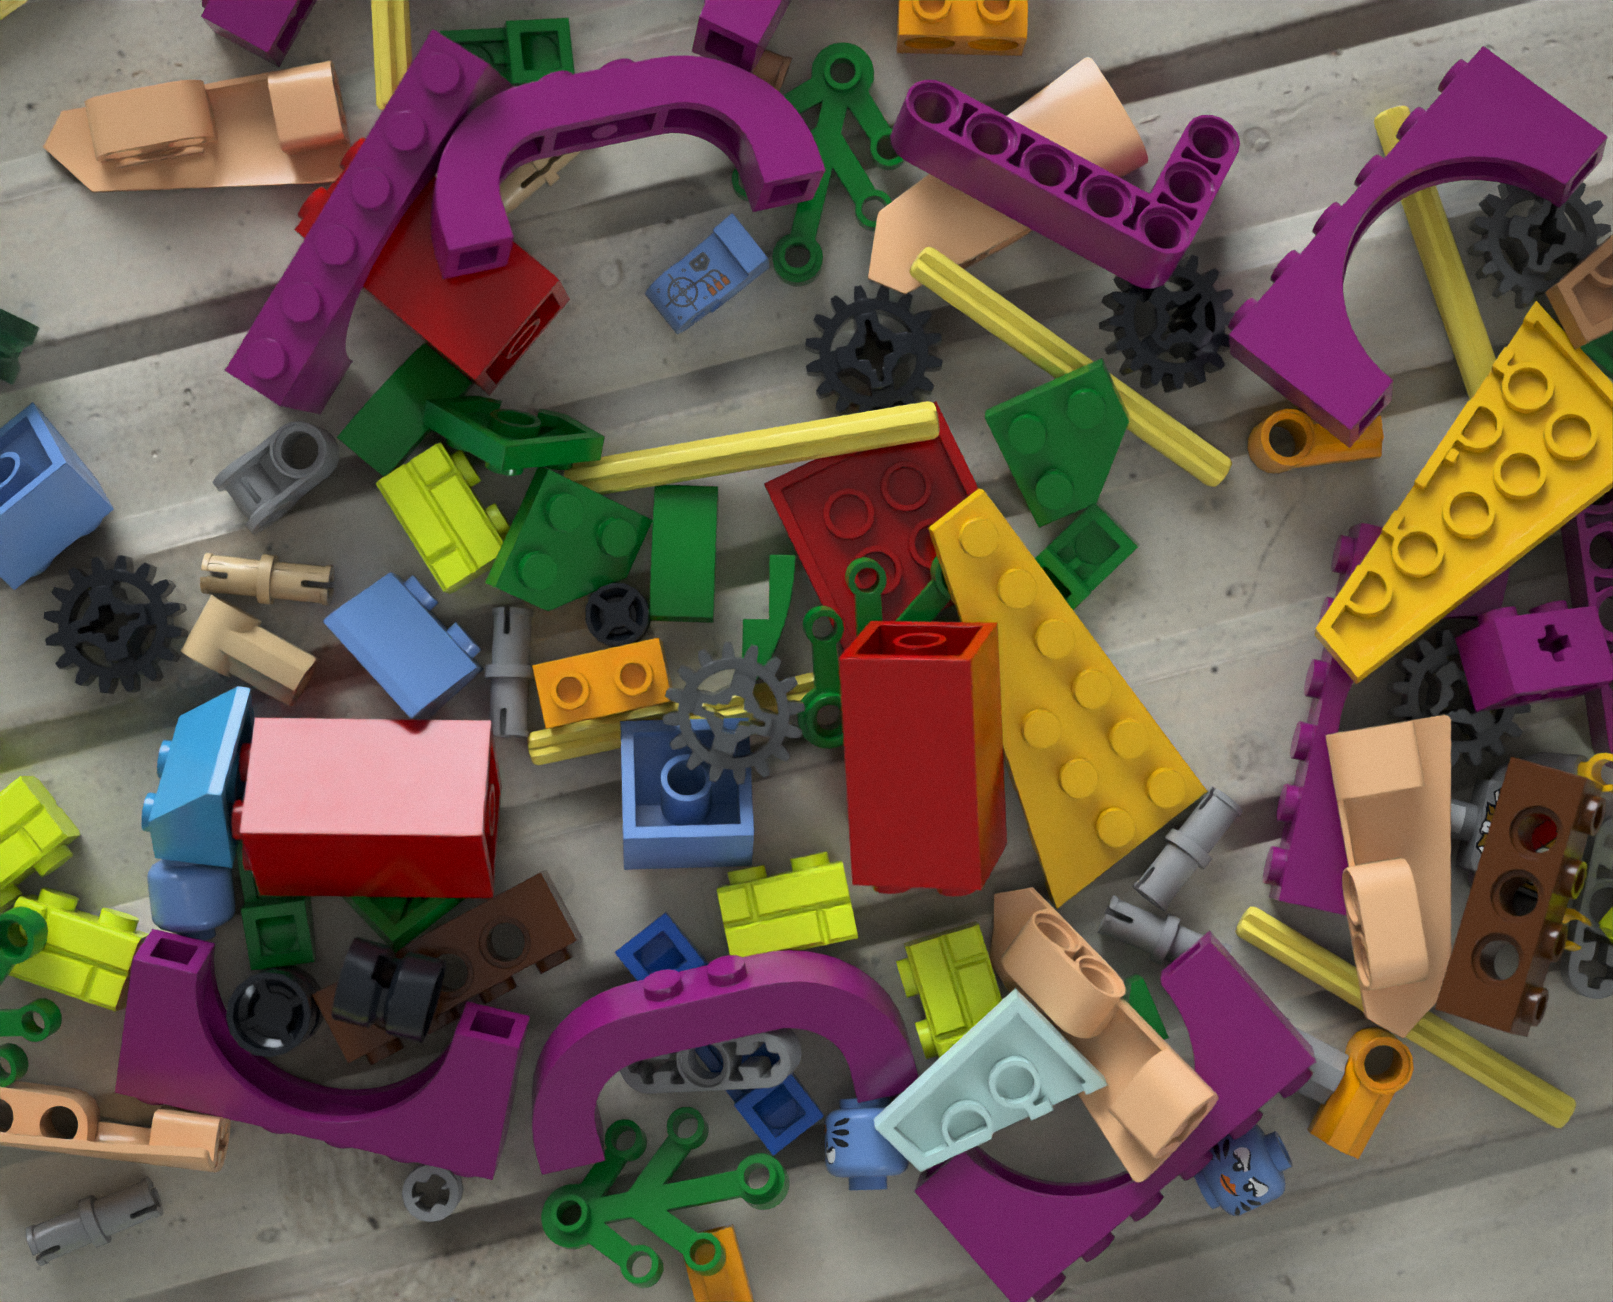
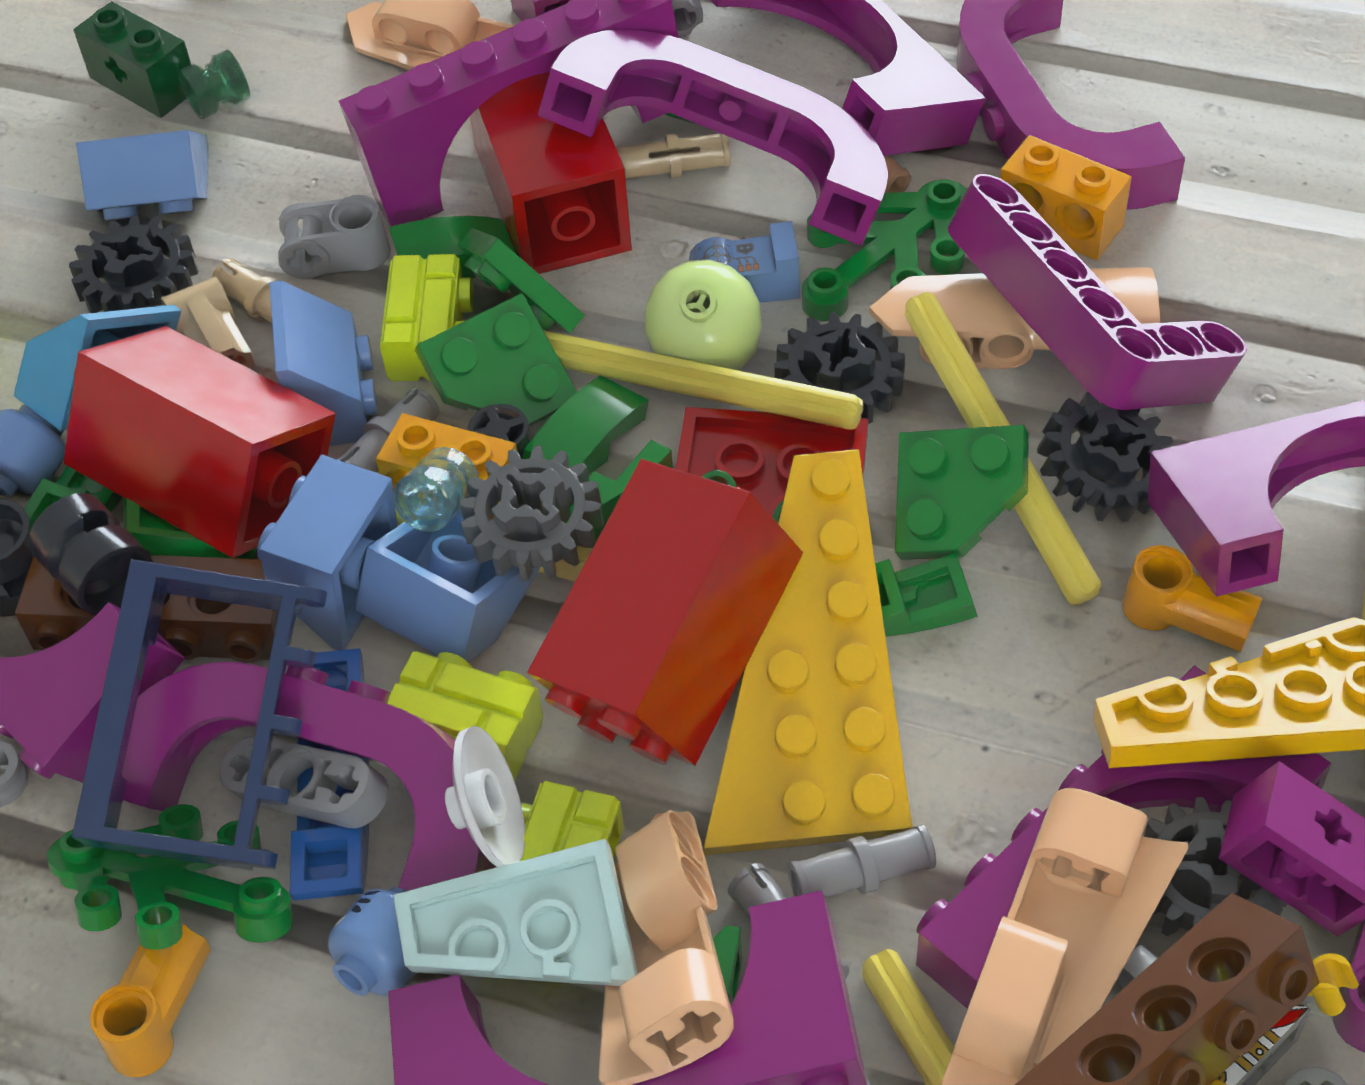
camera: 35 degrees right, 35 degrees down
(574, 842) = (325, 541): none -> medium blue slope
(633, 738) = (432, 491): none -> clear light blue wheel
(663, 1185) = (135, 631): none -> dark blue hinge
(717, 375) = (727, 321): none -> yellowish green cylinder
(901, 1017) = (486, 797): none -> white dish

